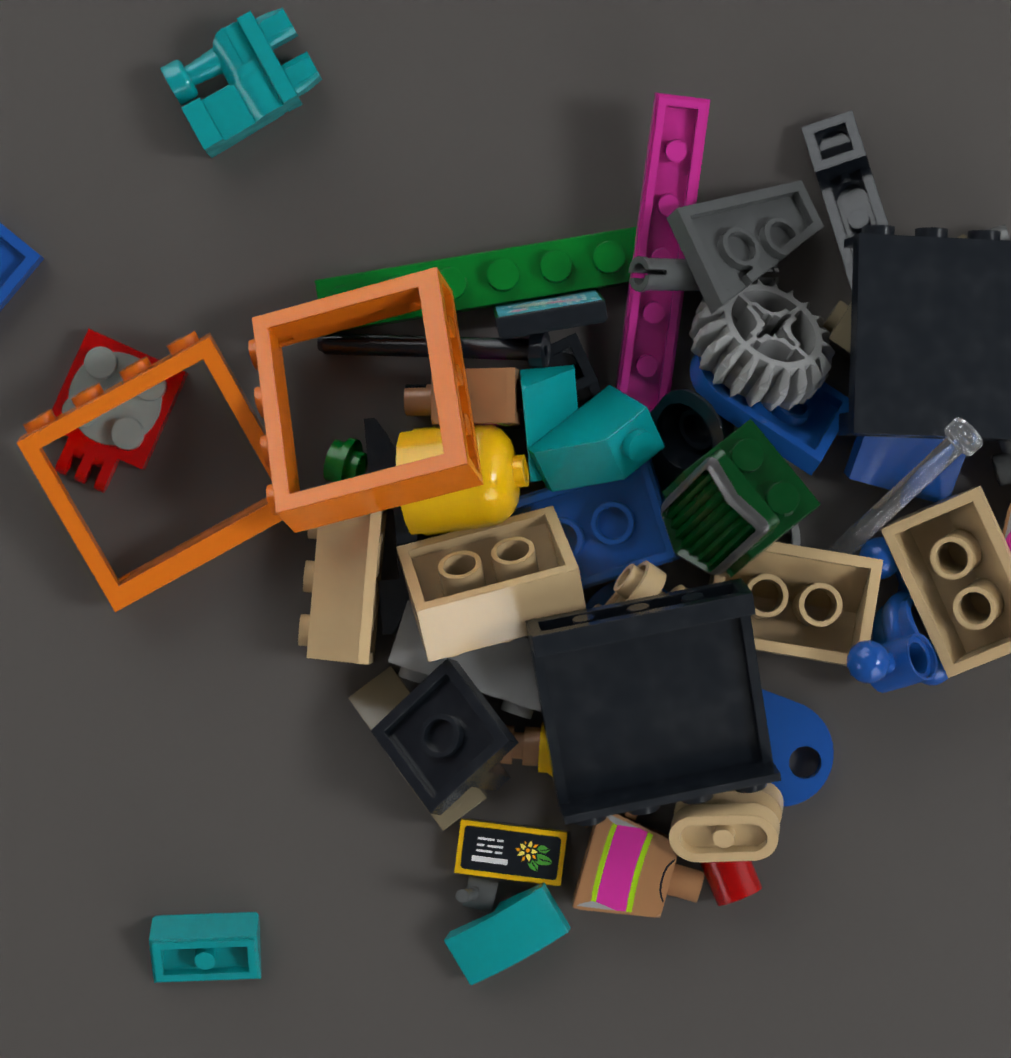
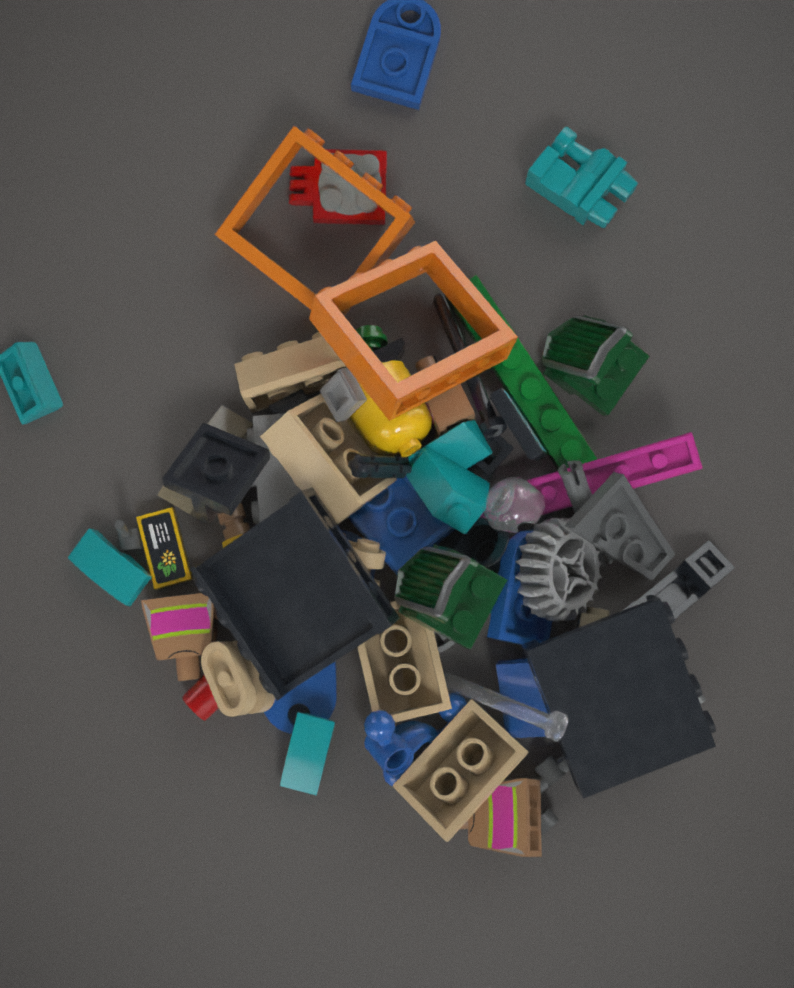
camera: 65 degrees right, 5 degrees down
(416, 530) = (343, 394): none -> light grey tile
(498, 176) = (592, 360): none -> dark green piece
(531, 521) = (379, 466): none -> black axle
(652, 366) = (513, 503): none -> clear hair
(859, 770) = (307, 753): none -> teal slope

